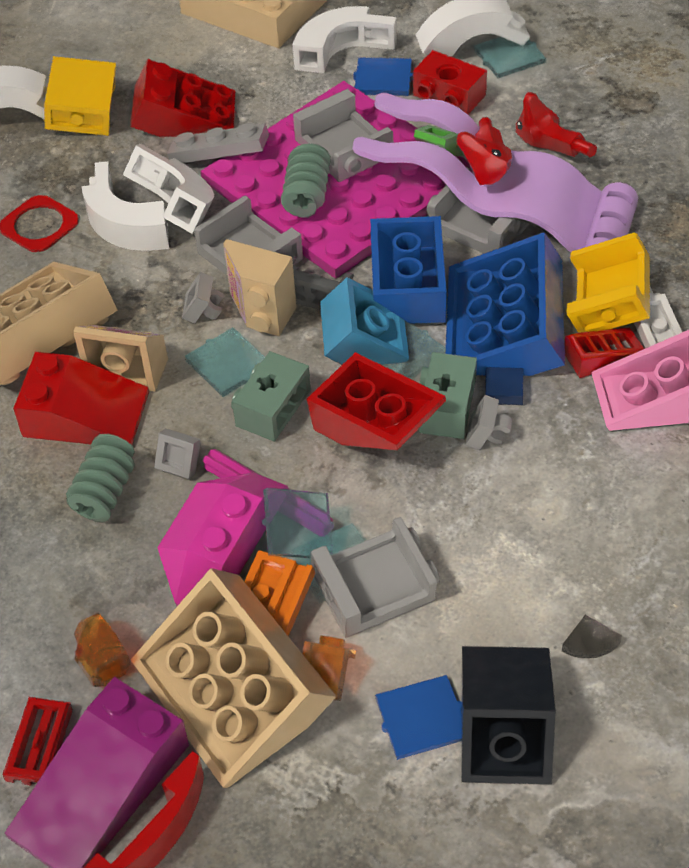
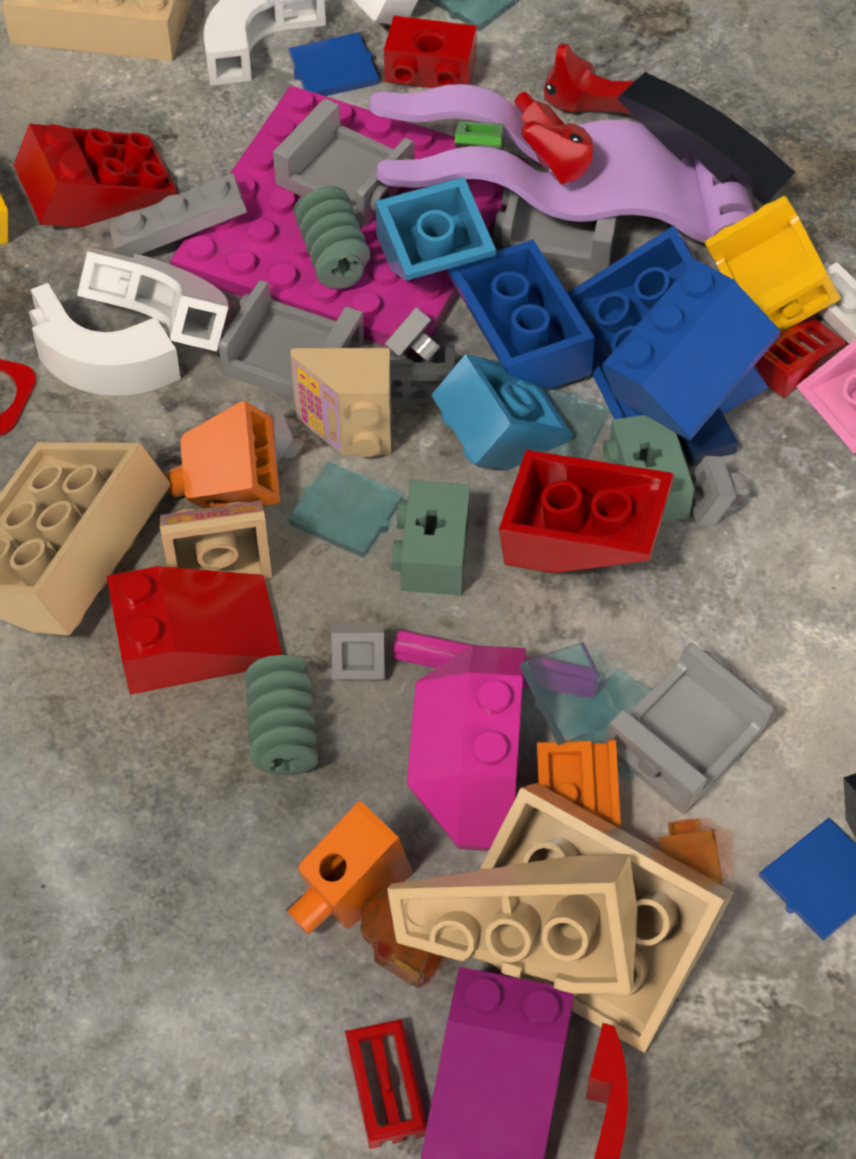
camera: 25 degrees left, 5 degrees up
(84, 587) = (347, 869): none -> orange torso
(159, 302) = (228, 460): none -> orange torso
(181, 662) = (543, 918): none -> tan wedge
(327, 259) = (412, 334): none -> light grey tile
(371, 189) = (432, 229): none -> dark azure slope
(504, 316) = (690, 350): none -> blue slope
(606, 179) = (709, 135): none -> black slope

